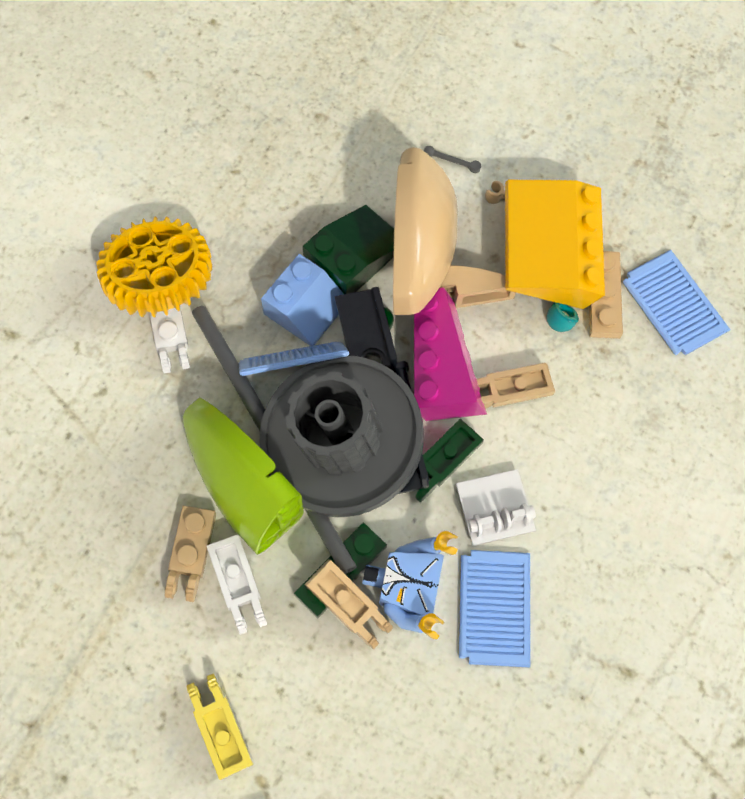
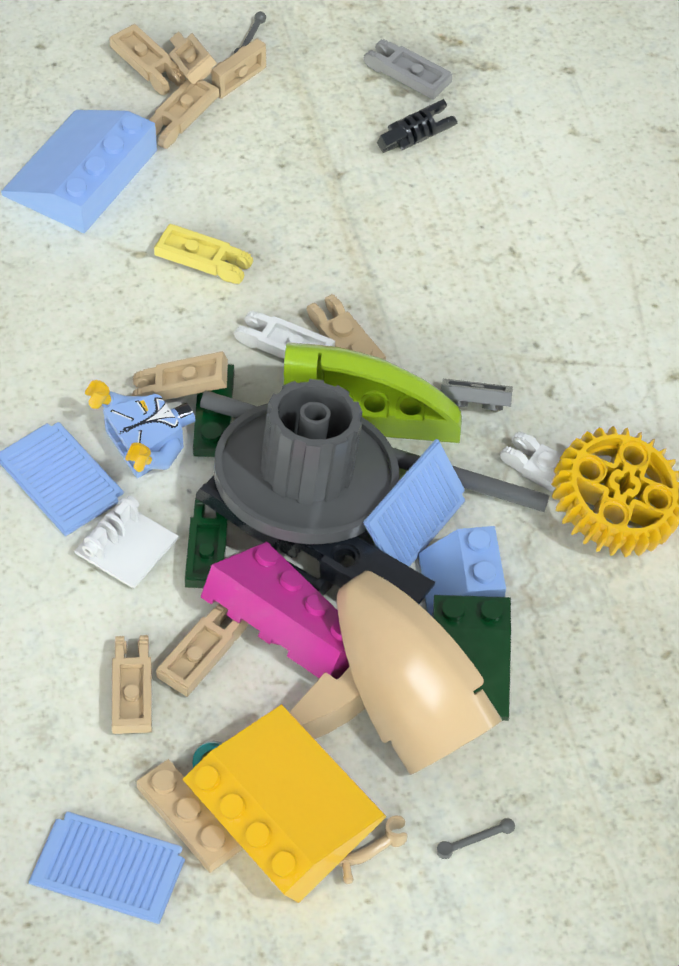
camera: 140 degrees right, 15 degrees down
(155, 420) = (490, 395): none -> plate
(577, 396) = (131, 688): none -> tan hinge

